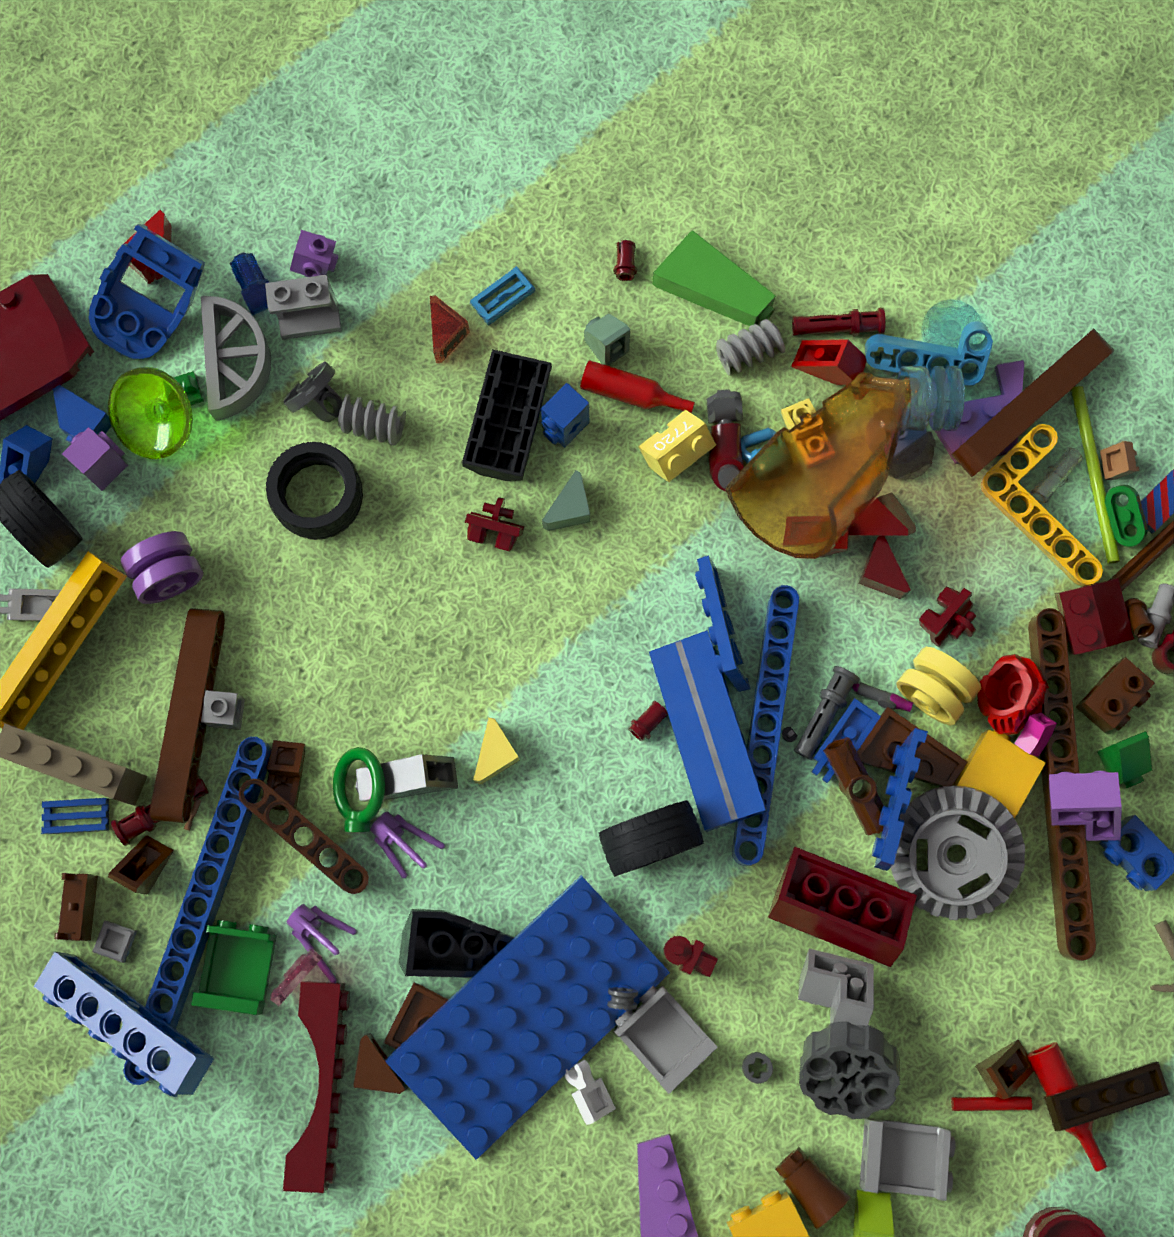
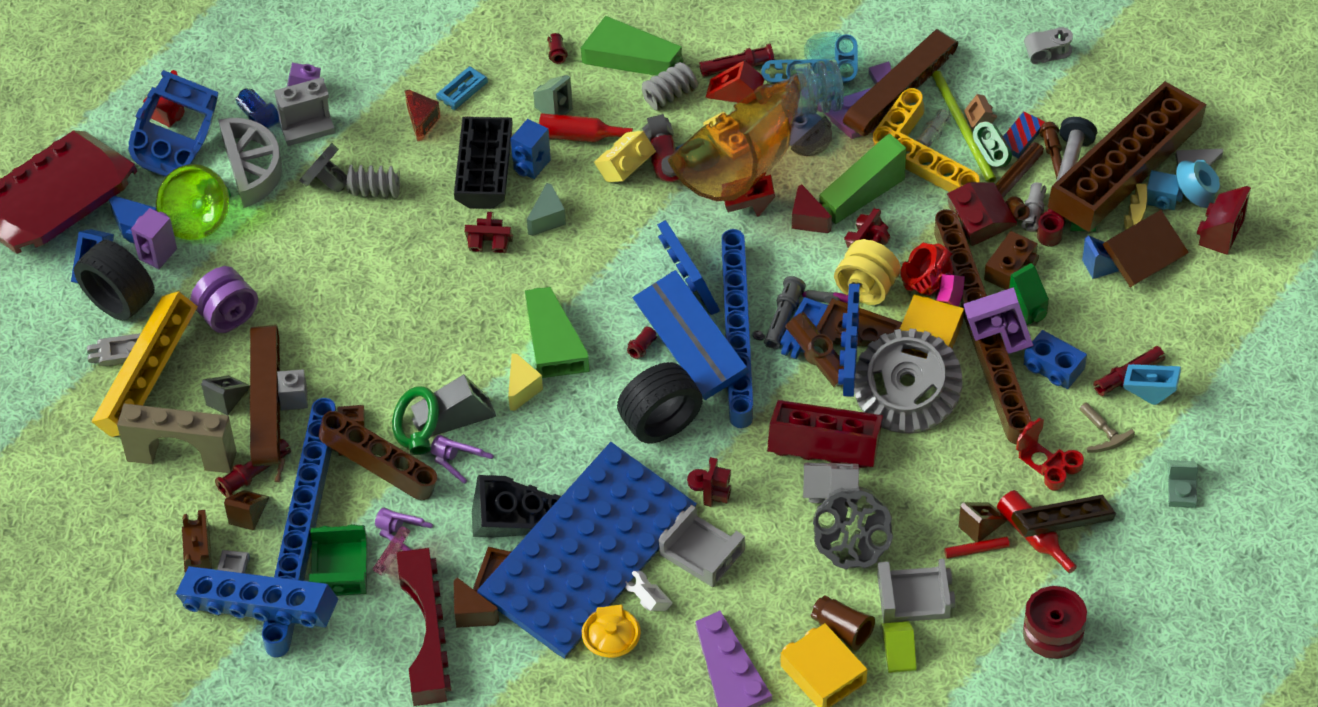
camera: 10 degrees left, 25 degrees down
(48, 817) = (181, 482): blue tile -> none
(145, 692) = (223, 392): none -> dark grey slope
(304, 456) = (340, 256): black tyre -> none
(534, 1143) = (611, 631): none -> yellow piece
(543, 698) = (554, 339): none -> bright green slope
(622, 998) = (660, 515): dark grey bush -> none
(764, 1075) = (774, 555): dark grey bush -> none
(884, 518) = (794, 174): dark red slope -> none
(960, 541) = (866, 179): none -> bright green slope
(1108, 1004) = (1057, 463): none -> red piece

